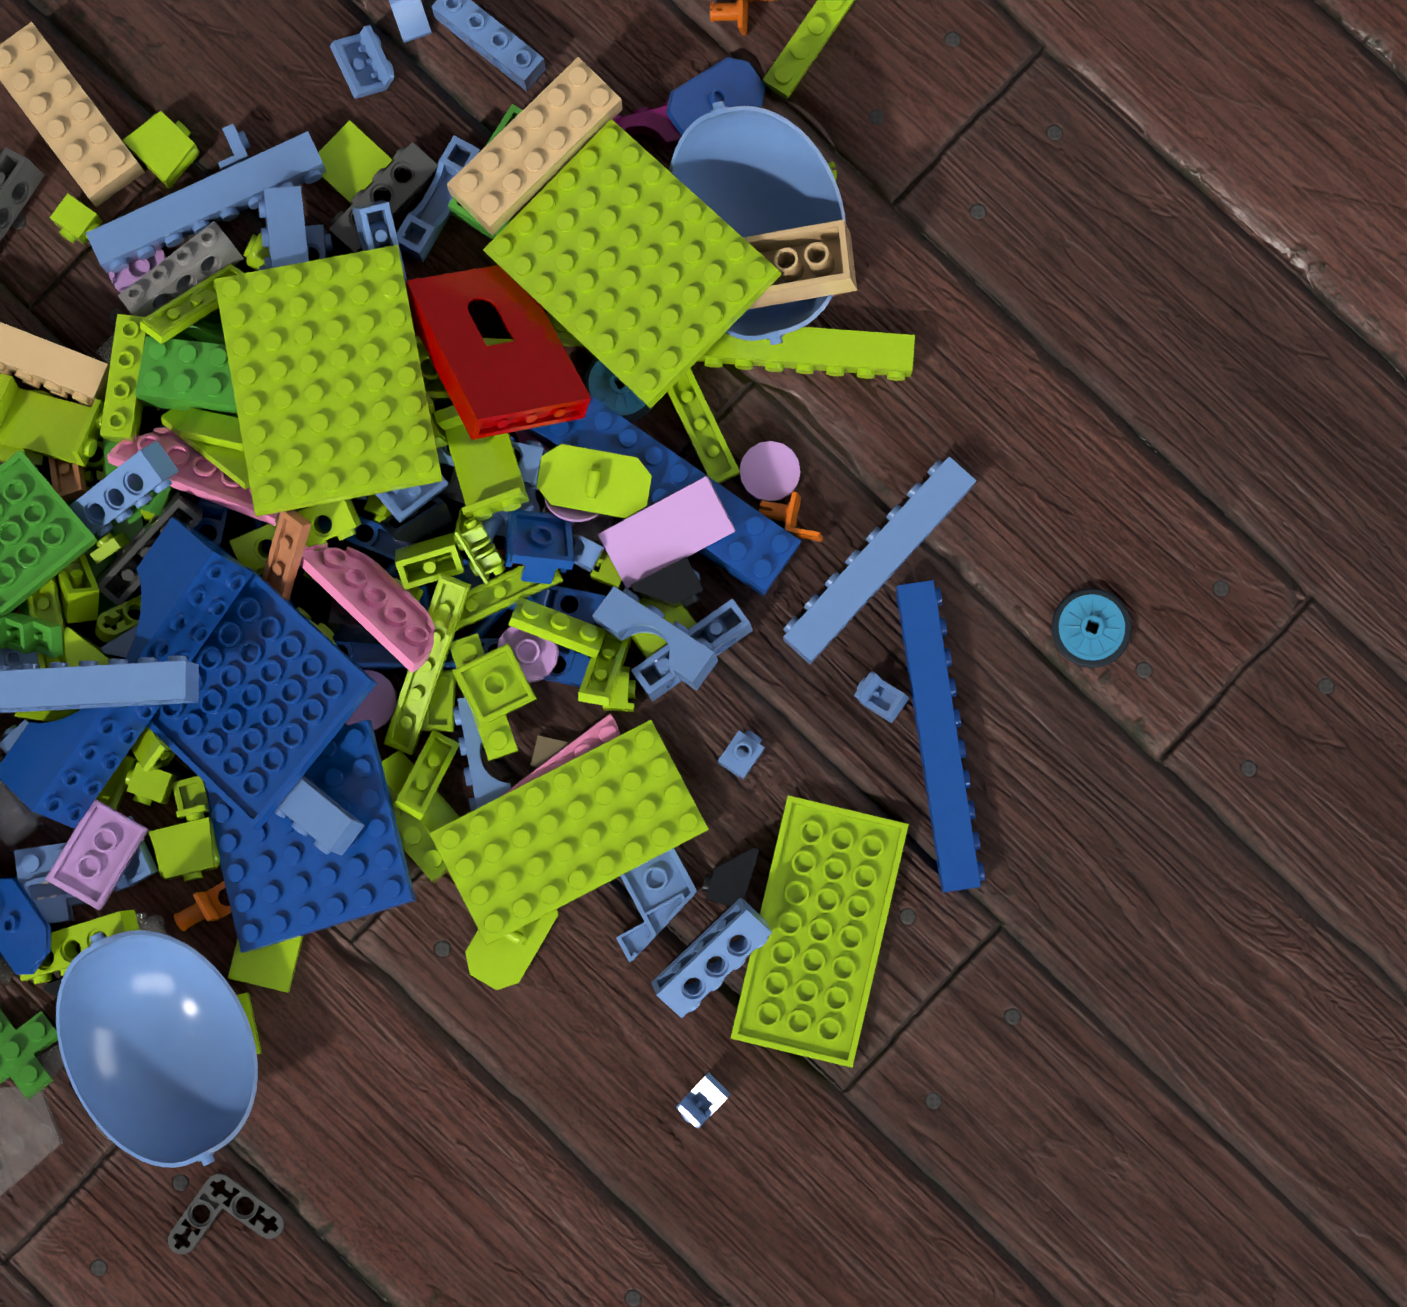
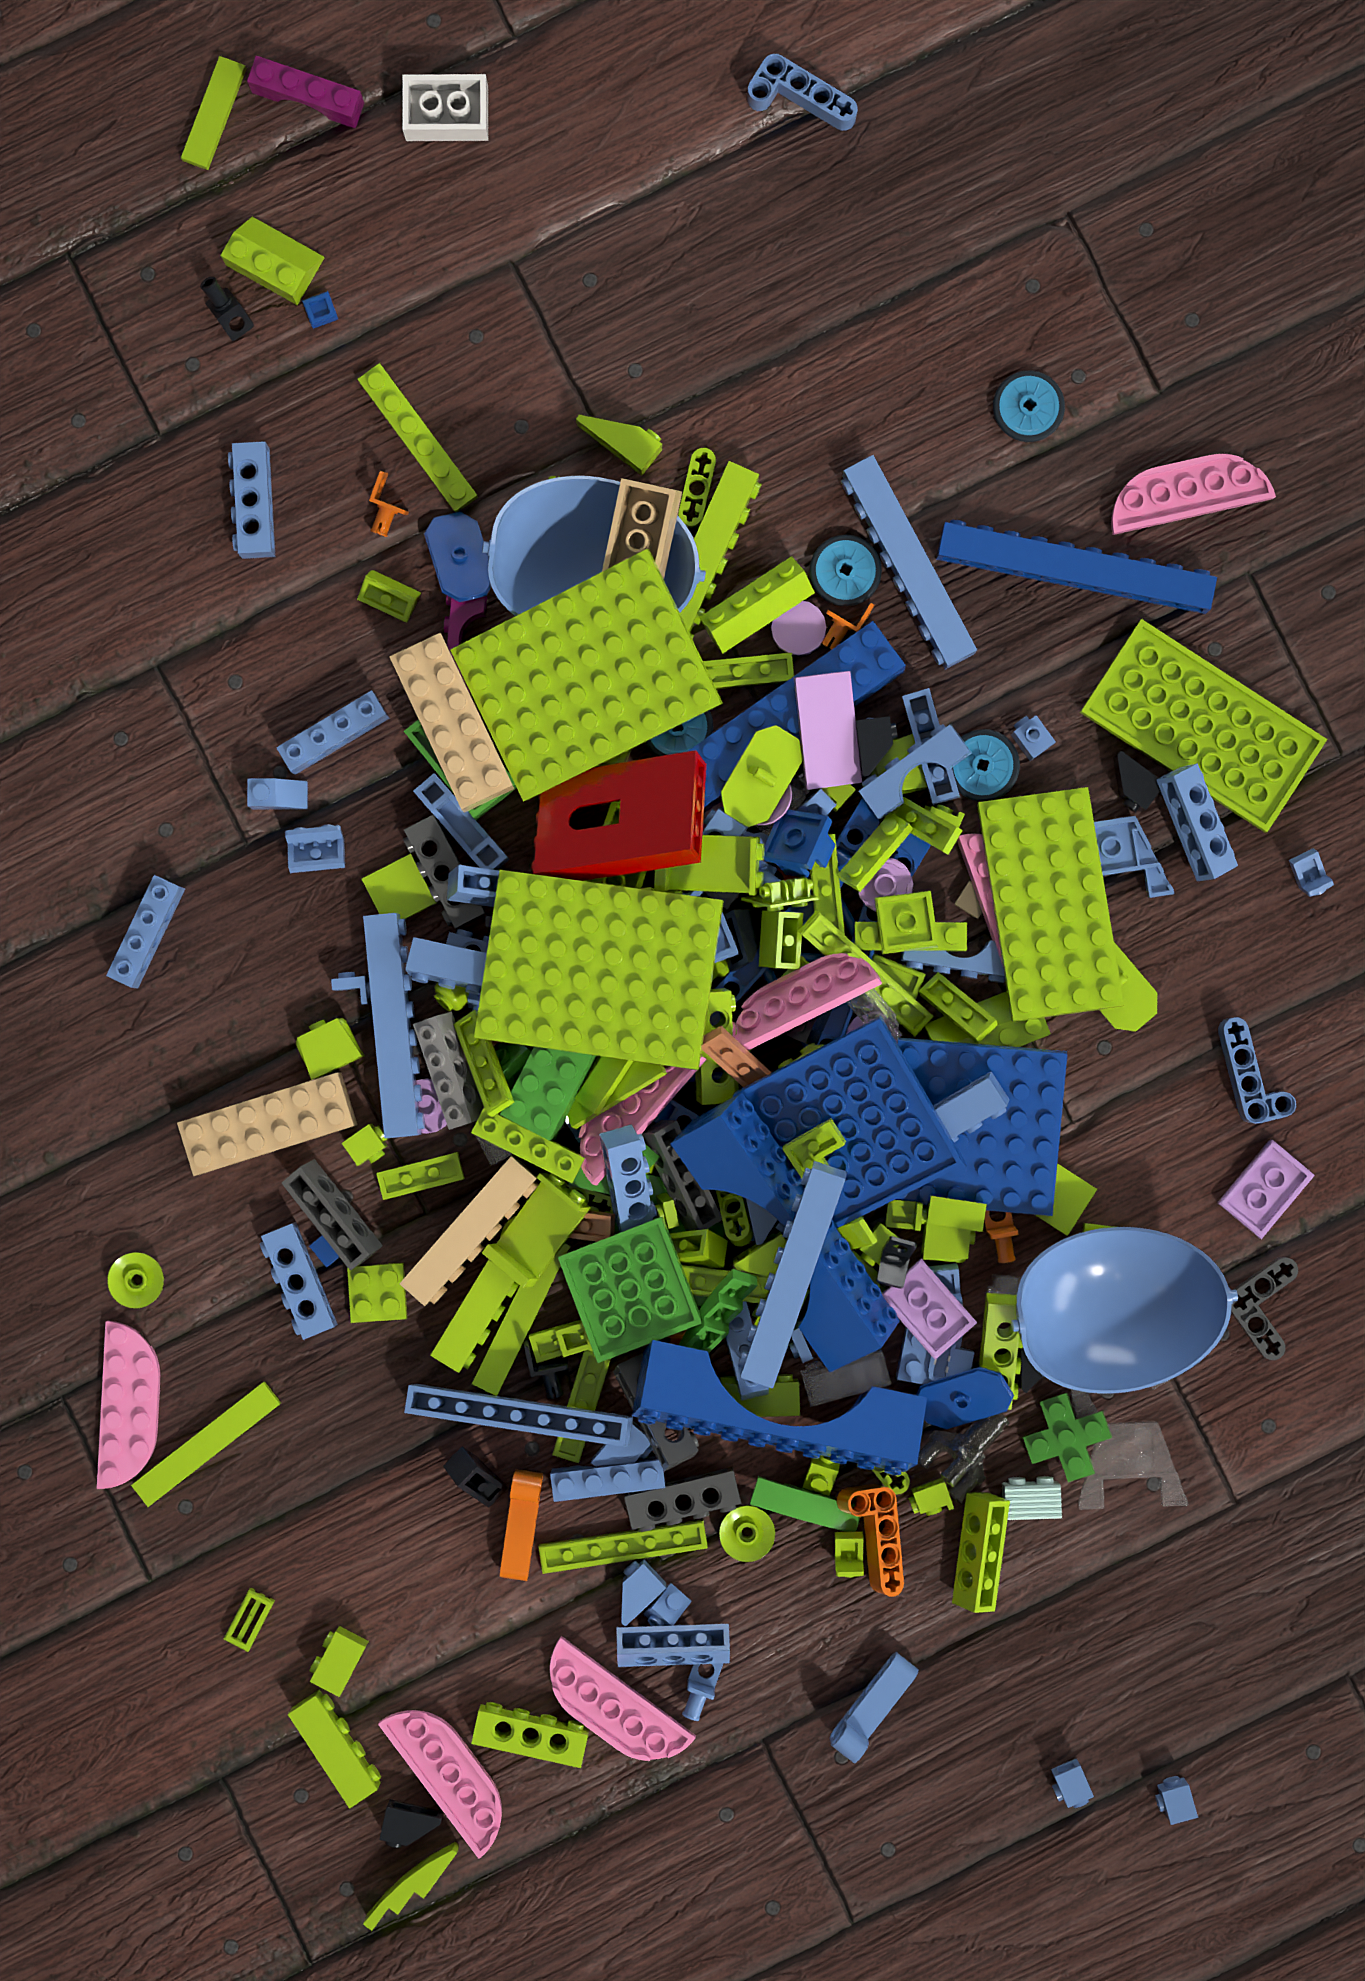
camera: 70 degrees left, 5 degrees up
(63, 287) = (420, 1176): none -> lime plate
(132, 801) = (894, 1262): none -> black bracket
(207, 848) = (956, 1213): none -> lime tile
(220, 666) = (814, 1146): none -> lime plate
(350, 1174) = (1265, 1189): none -> lavender tile
(388, 692) = (871, 1006): none -> clear hinge
(469, 1109) = (1249, 1068): none -> medium blue beam
(652, 45) = (388, 595): none -> lime slope
(700, 733) = (1001, 771): none -> dark azure wheel
(776, 417) = (757, 604): none -> lime brick
(842, 518) = (854, 554): none -> dark azure wheel
(880, 697) = (1026, 603): medium blue bracket -> none
(898, 227) = (627, 442): none -> lime slope
(901, 322) = (694, 467): none -> lime beam
(1063, 827) = (1188, 491): none -> bright pink plate
(1327, 280) = (803, 97): none -> medium blue beam

